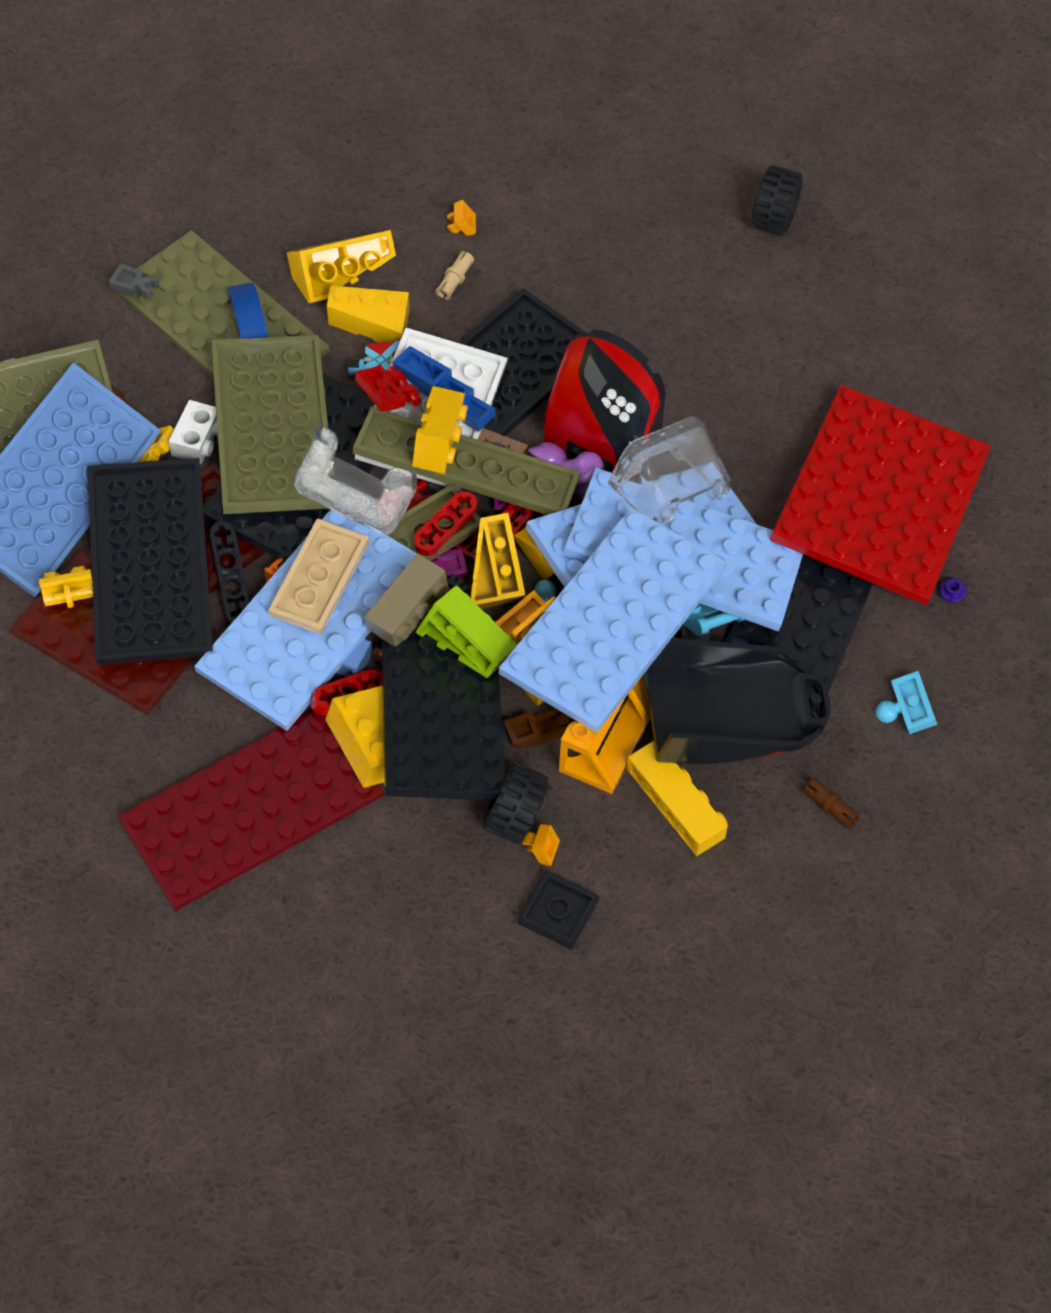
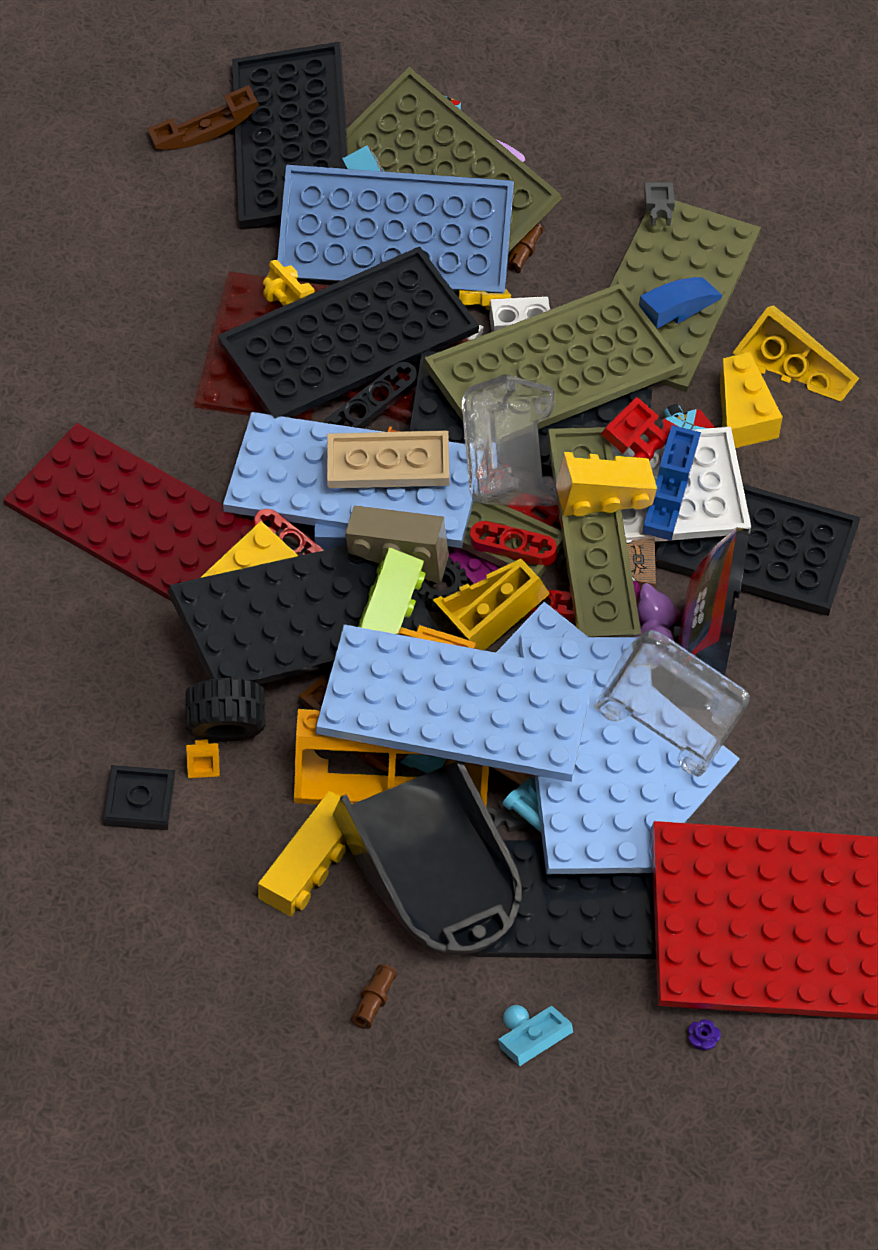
camera: 65 degrees right, 5 degrees down
(454, 275) = (842, 456): tan pin -> none

